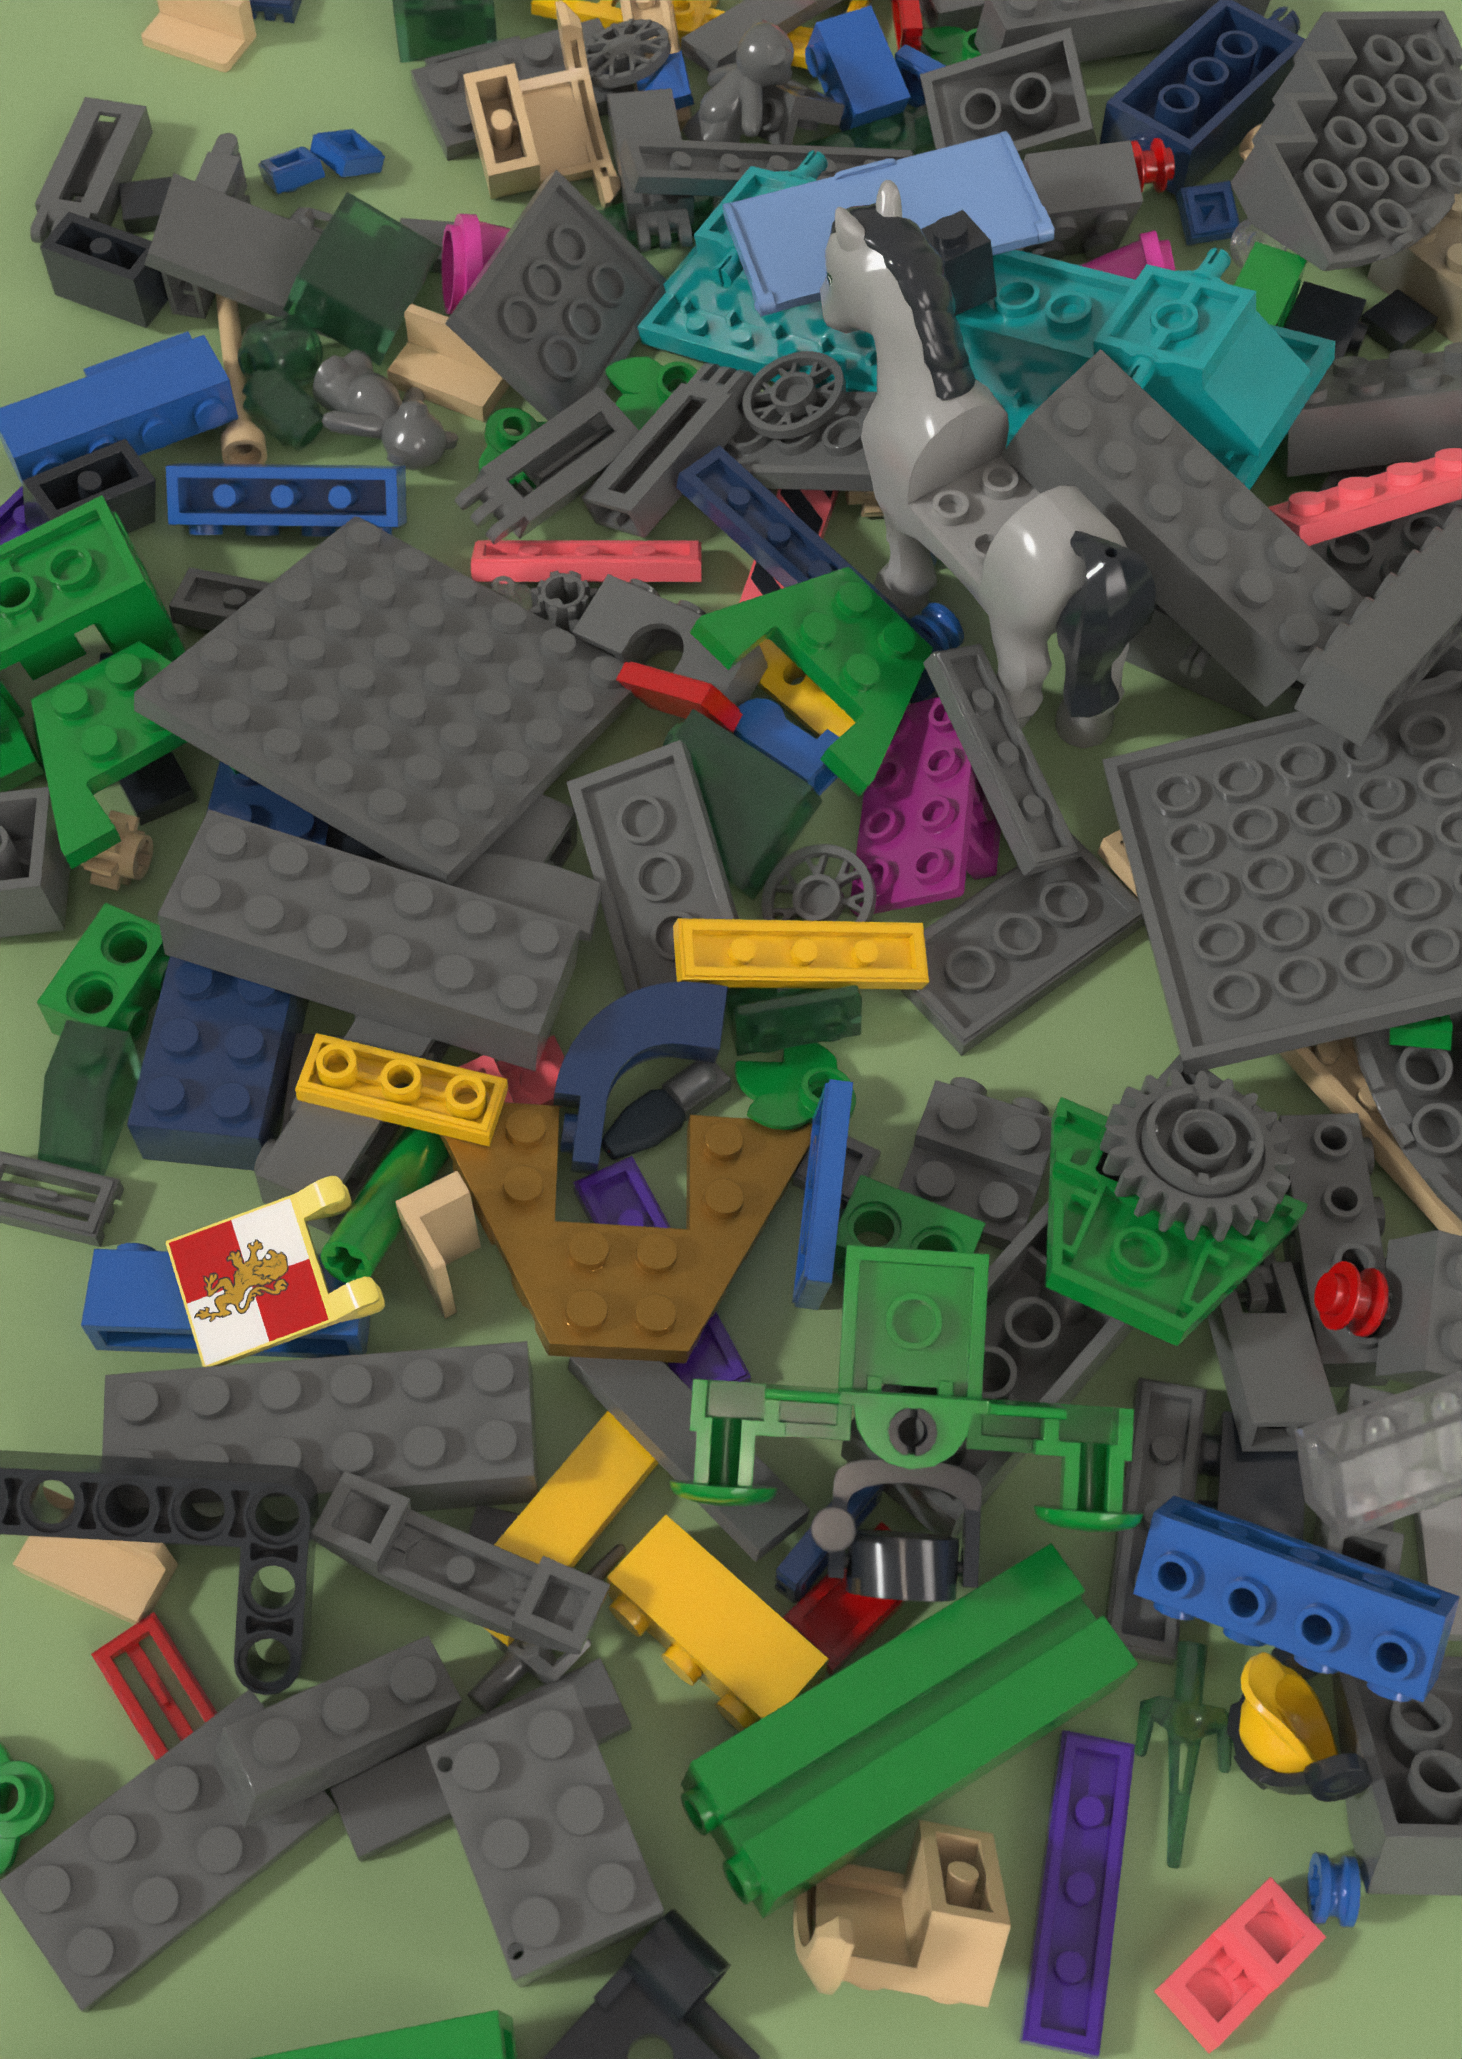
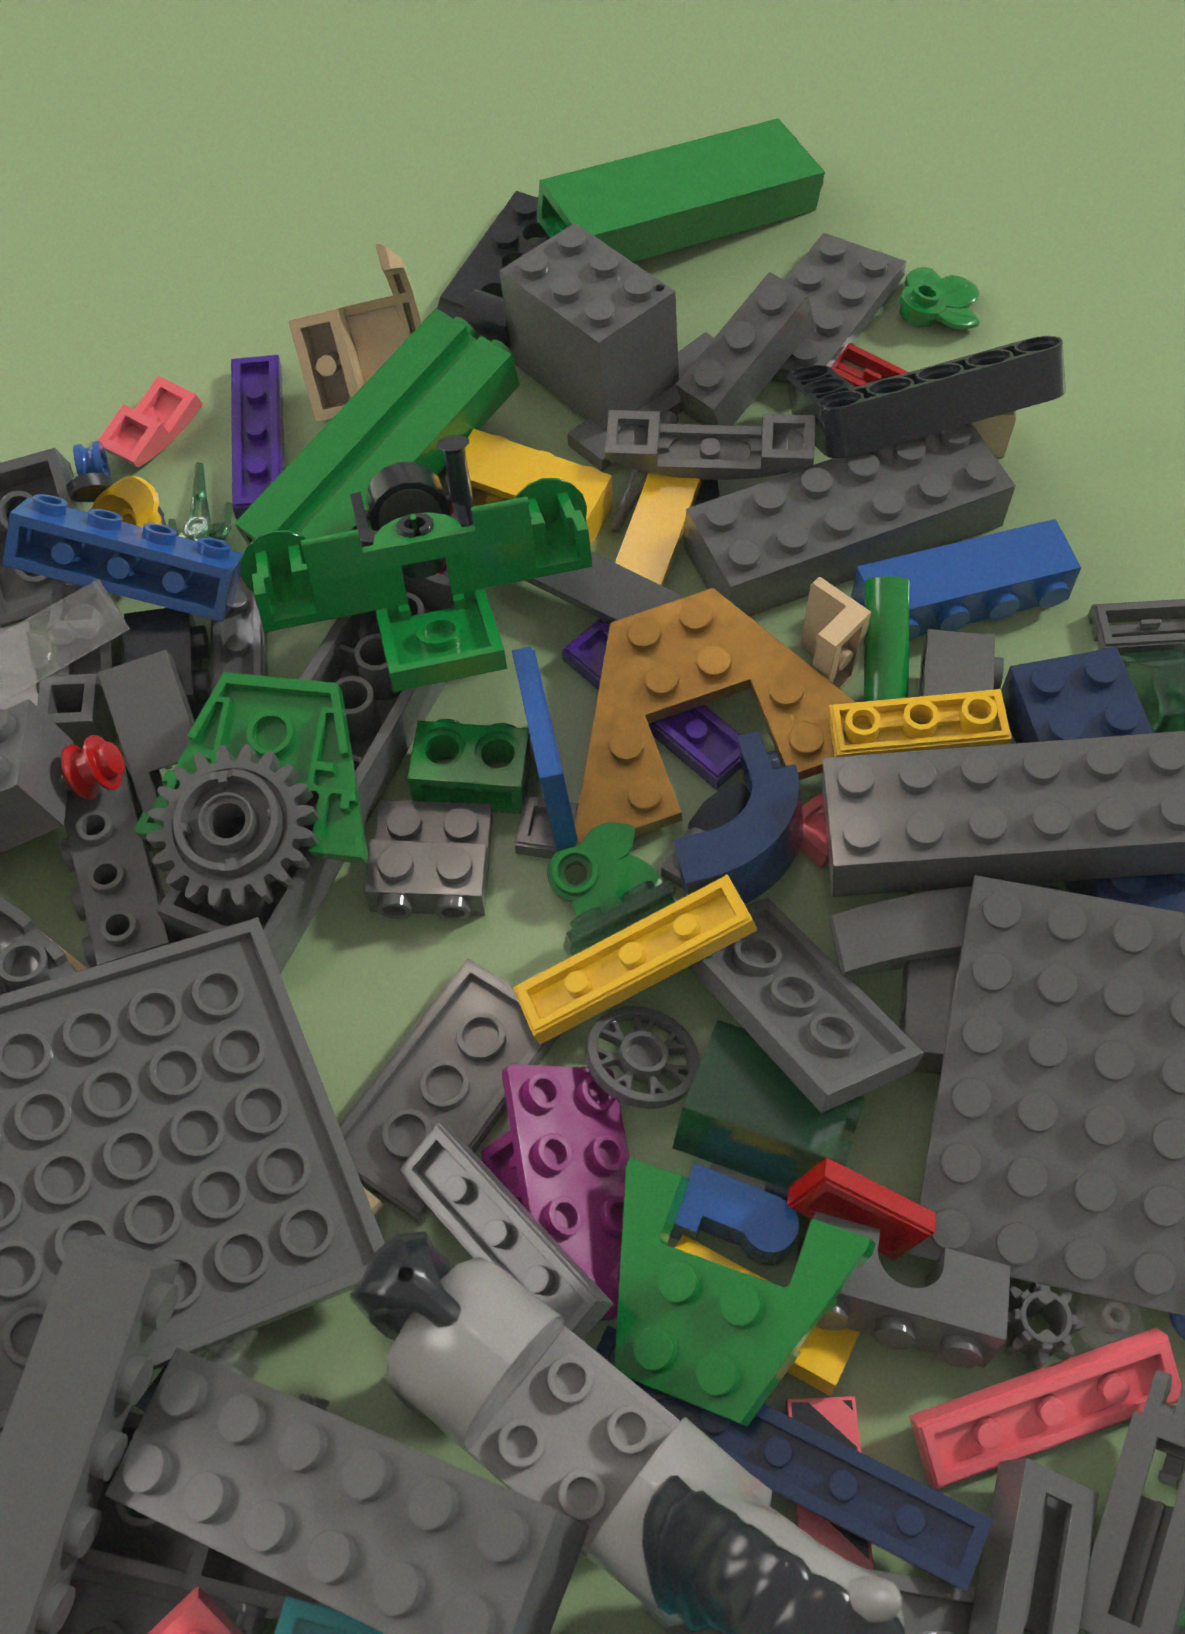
camera: 165 degrees right, 0 degrees up
(260, 1277) = (947, 568): flag -> none

